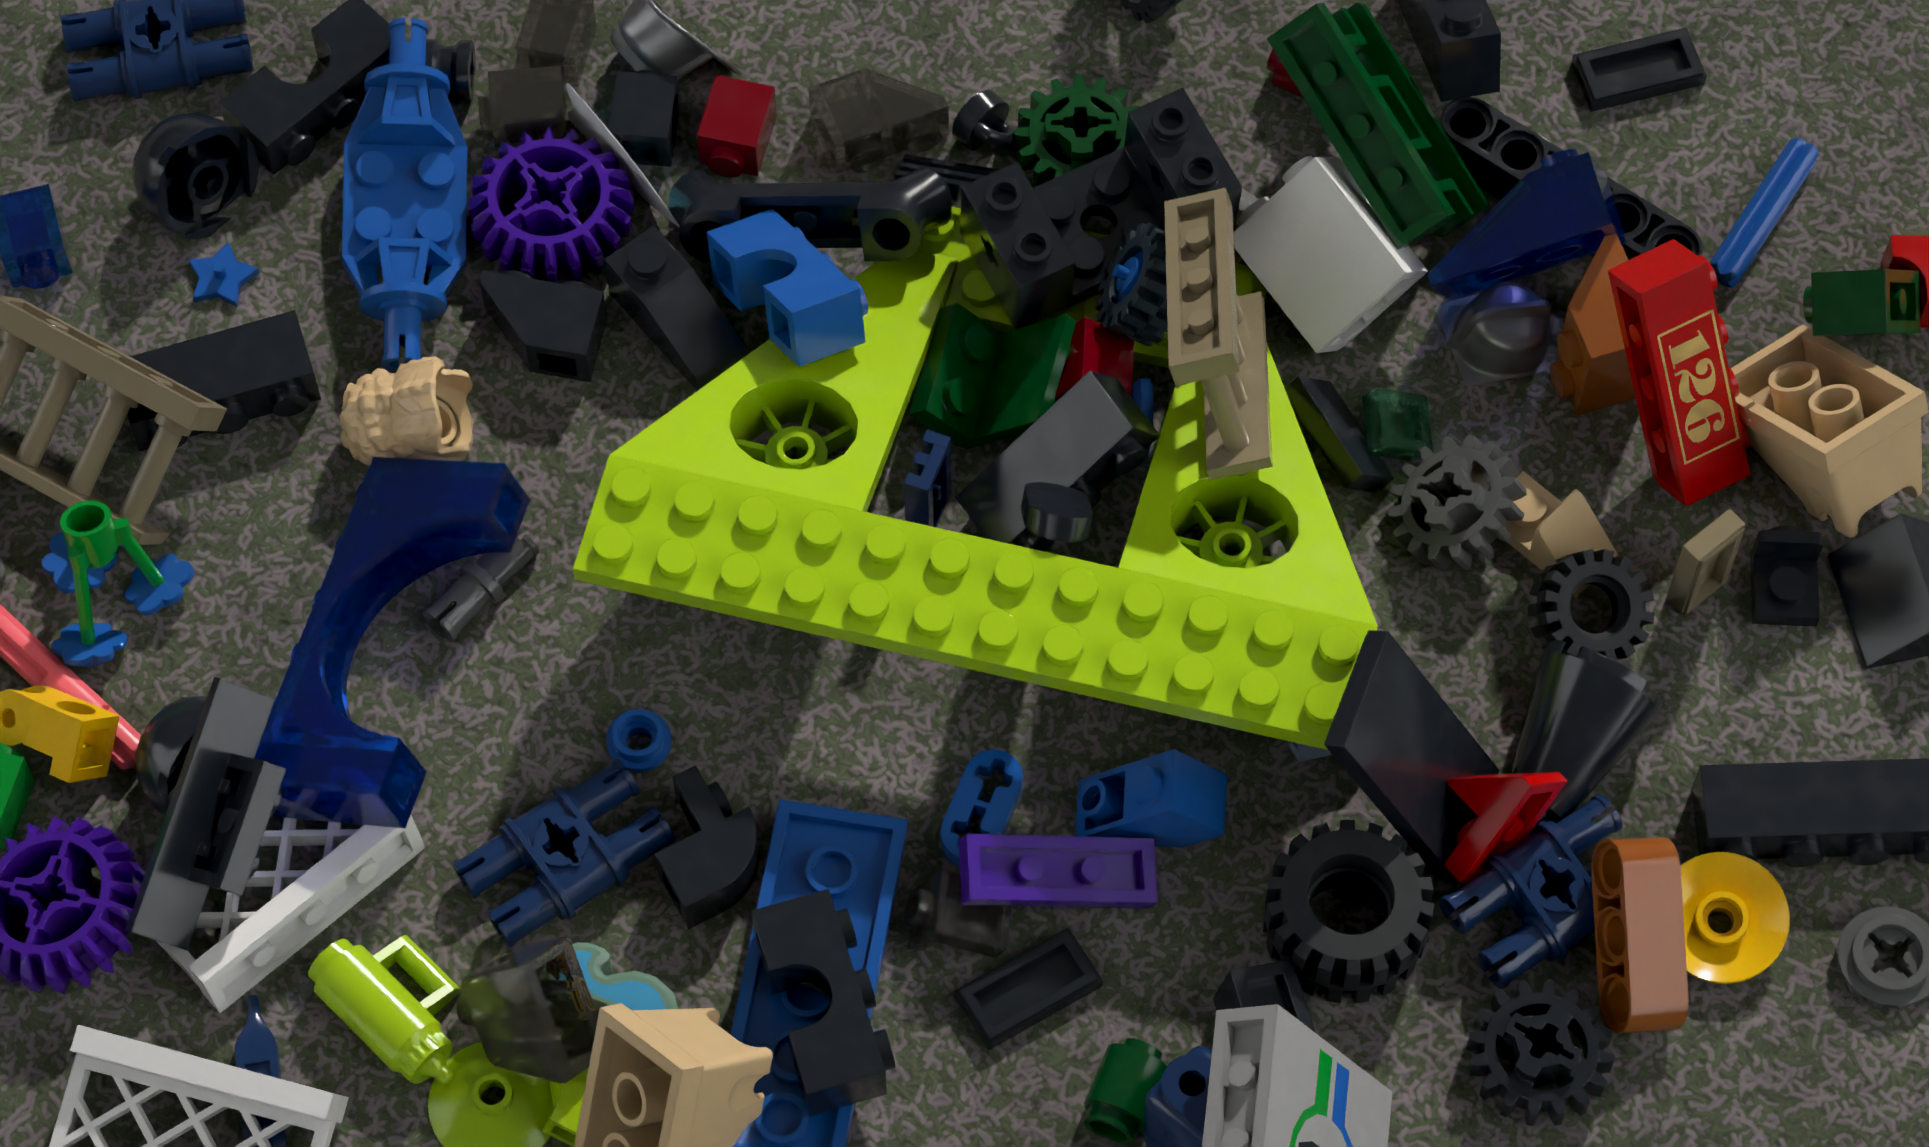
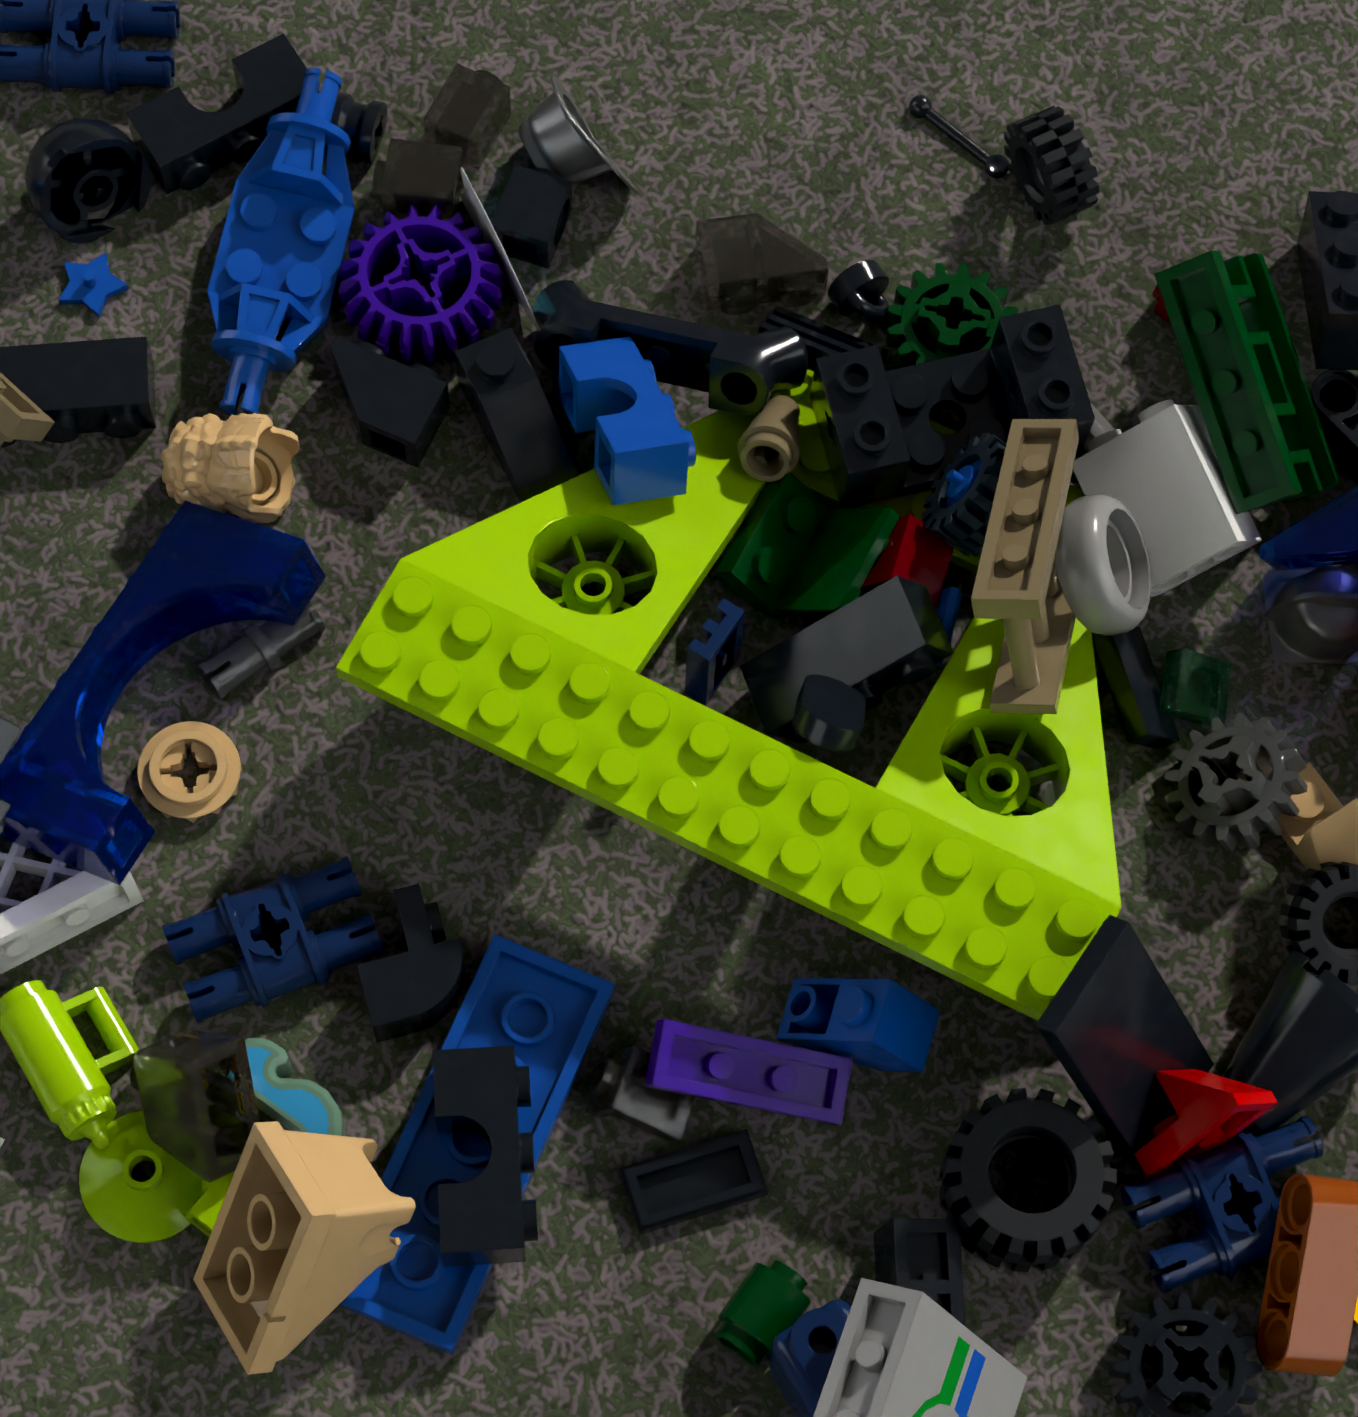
camera: 10 degrees right, 5 degrees up
(454, 689) = (167, 753): none -> tan gear
(639, 722) = (374, 822): blue plate -> none
(736, 126) = (619, 243): dark red brick -> none
(934, 278) = (772, 440): none -> dark tan cone
(967, 800) = (680, 972): blue beam -> none
(1283, 323) = (1103, 565): none -> light grey wheel

